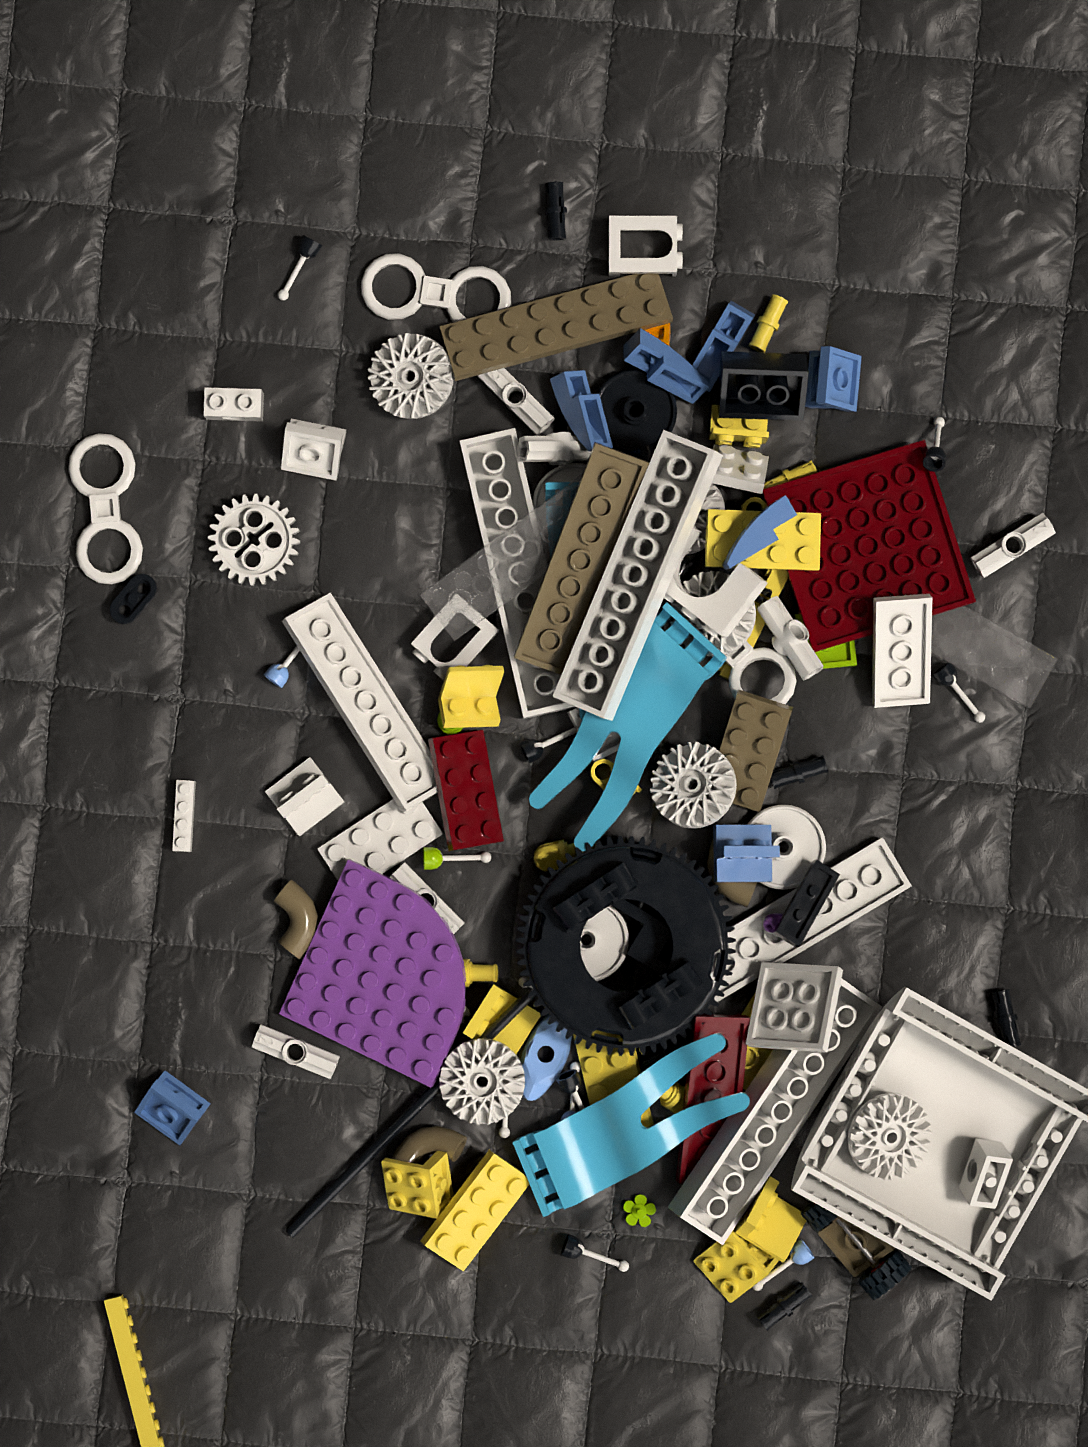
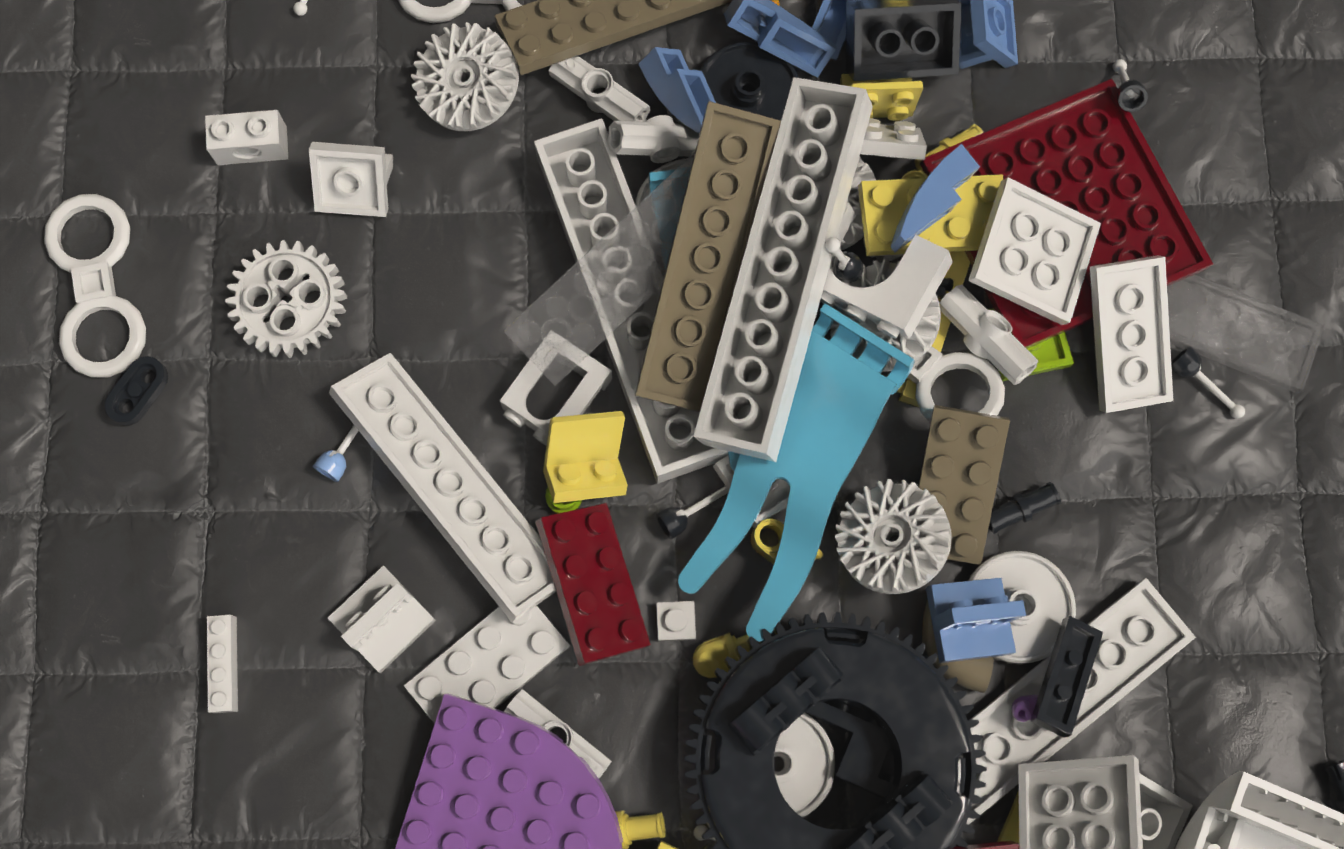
camera: 10 degrees left, 10 degrees down
(302, 918) = (391, 781): dark tan cylinder -> none
(433, 858) = (560, 678): hinge -> none
(524, 825) = (676, 621): none -> white plate
(691, 576) = (844, 261): none -> black hinge
(834, 580) = (1034, 251): none -> white plate
(1027, 535) = (1253, 184): white piece -> none

